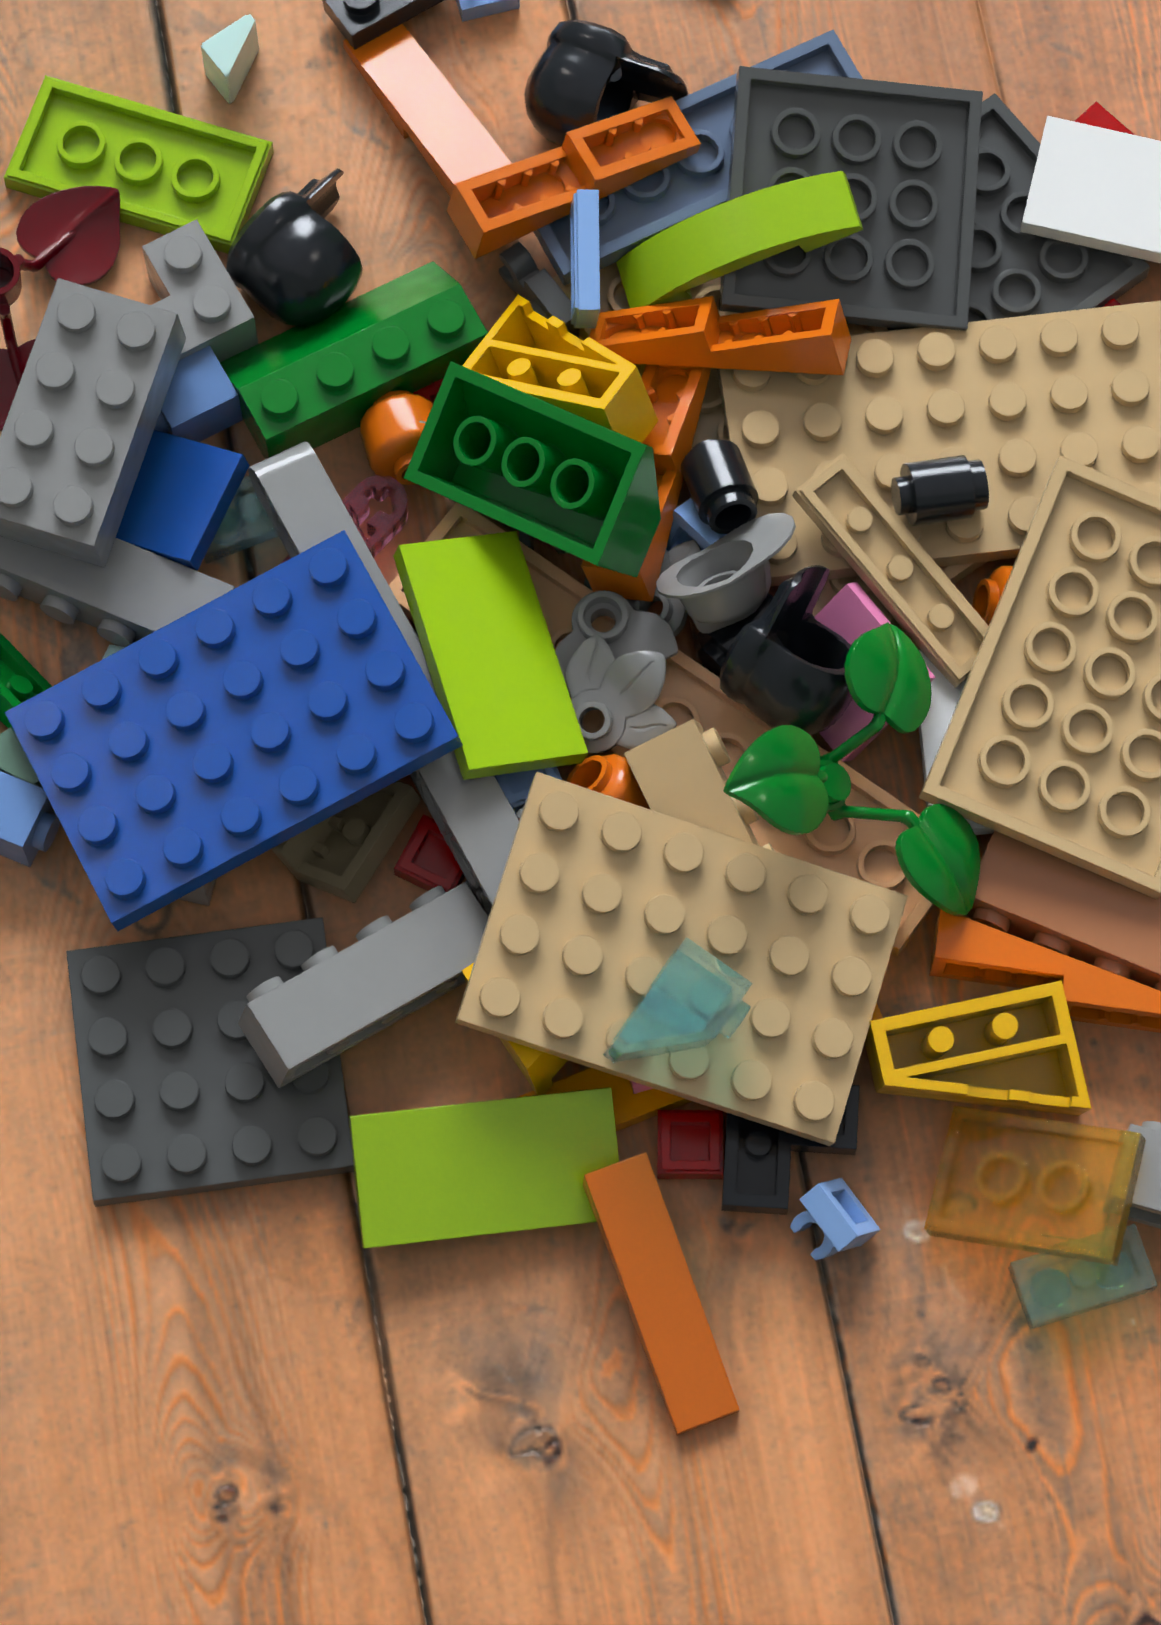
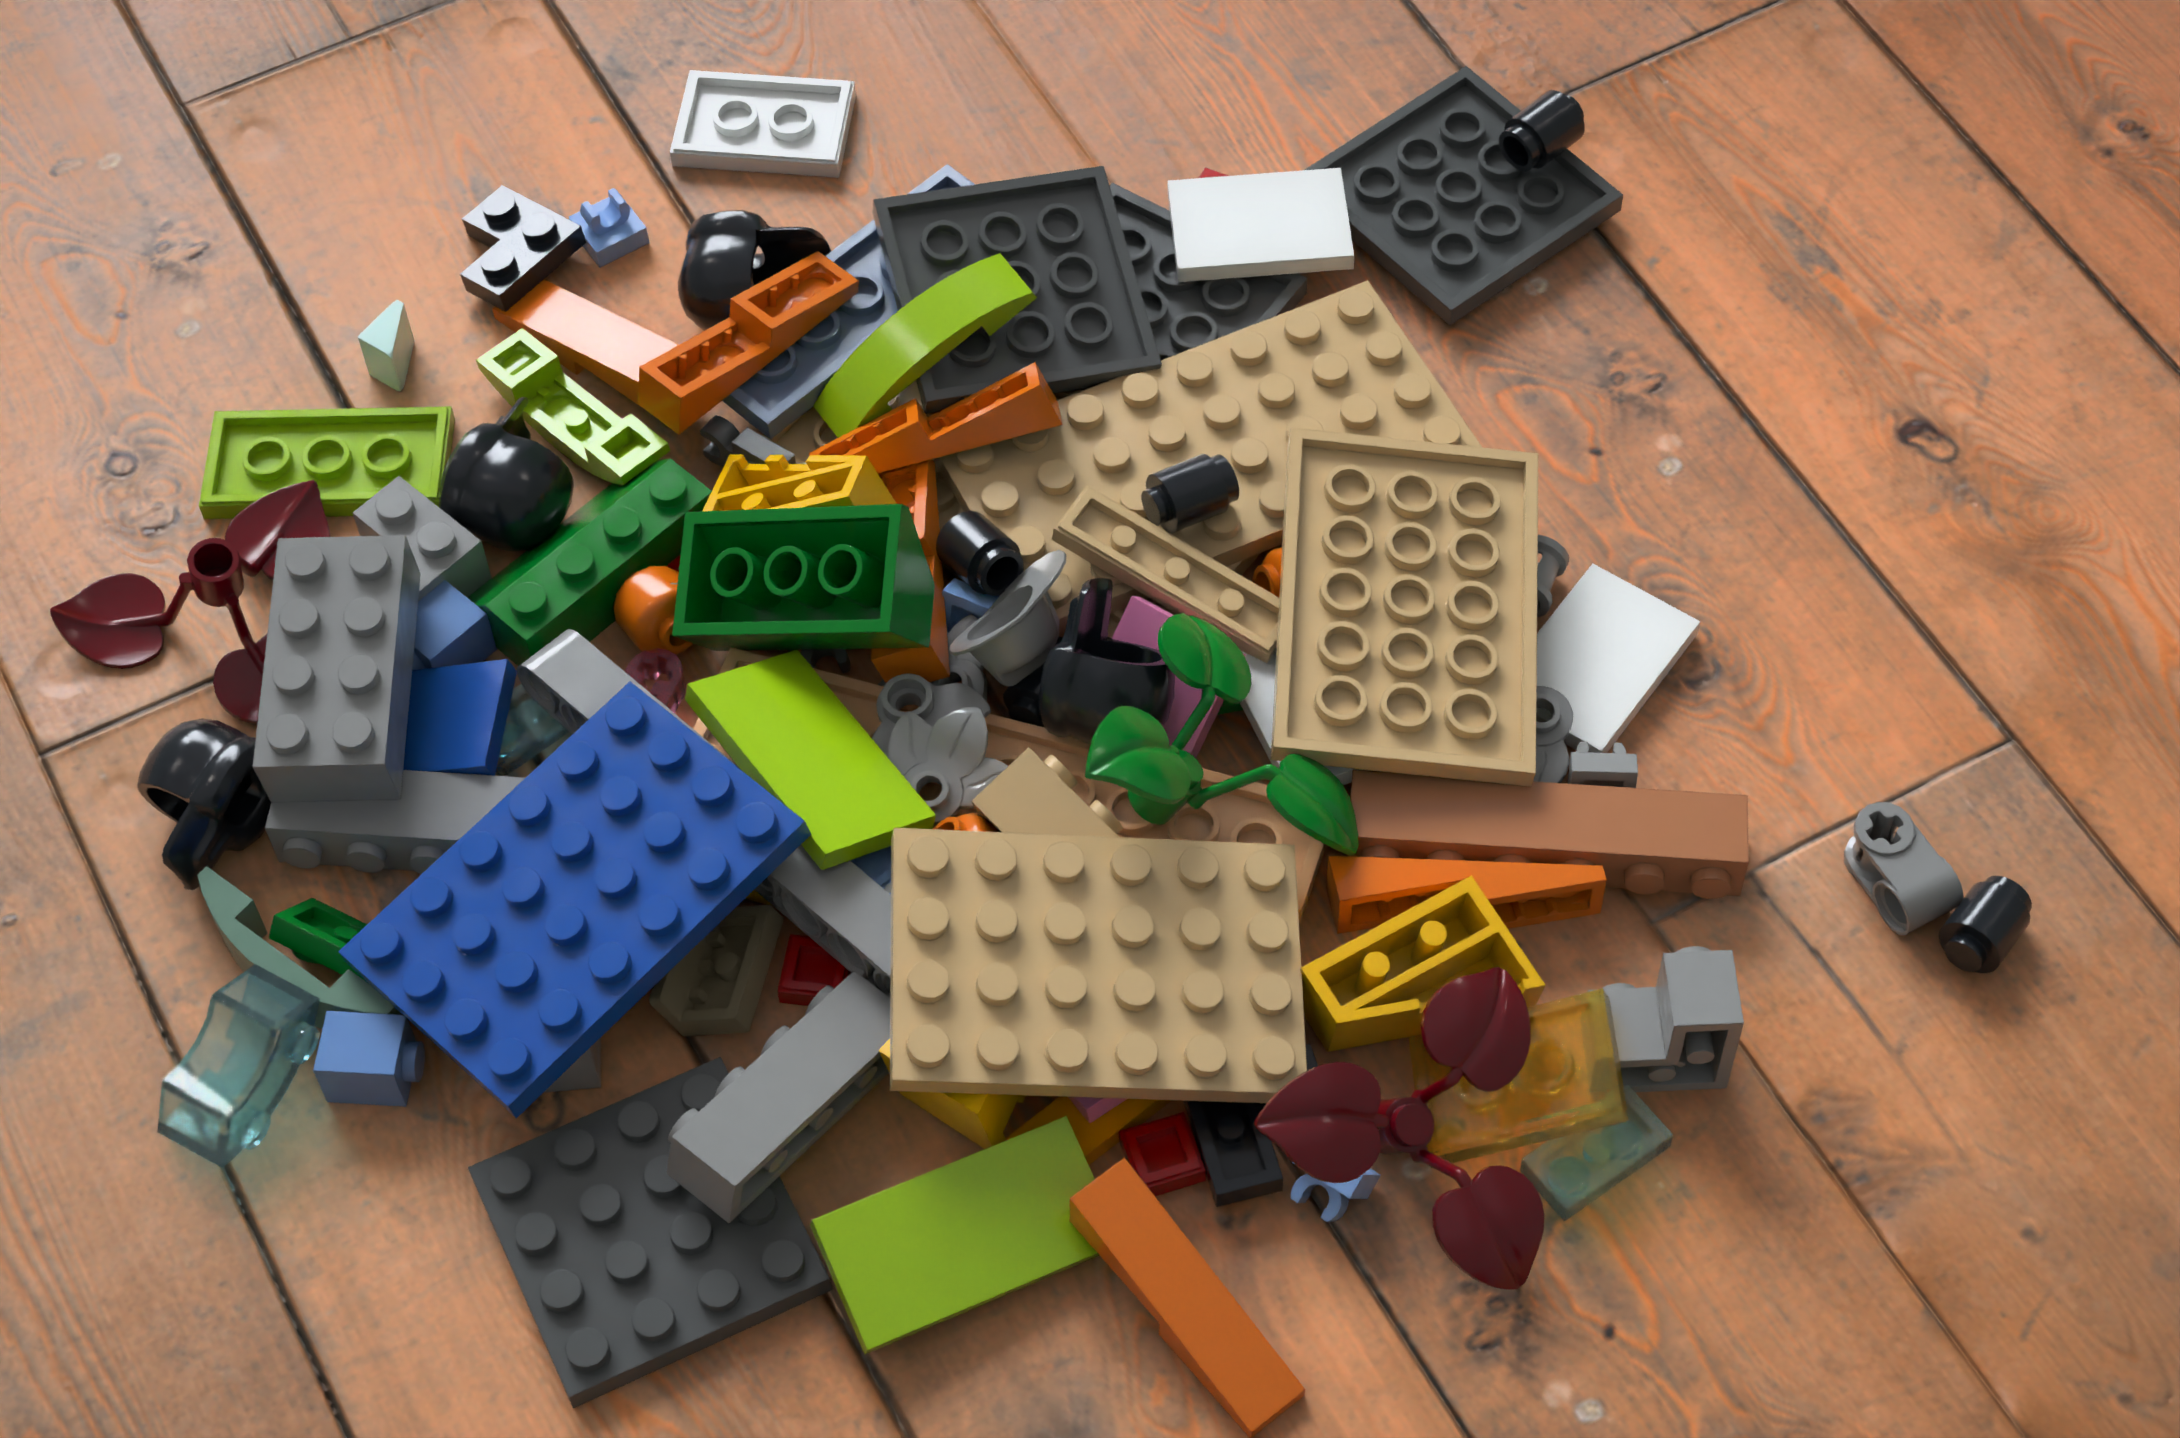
camera: 15 degrees left, 15 degrees down
(383, 188) = (568, 413): none -> lime slope
(585, 258) = (784, 397): light blue tile -> none
(683, 1007) = (1116, 995): clear light blue slope -> none
(835, 1189) = (1338, 1125): none -> dark red plant

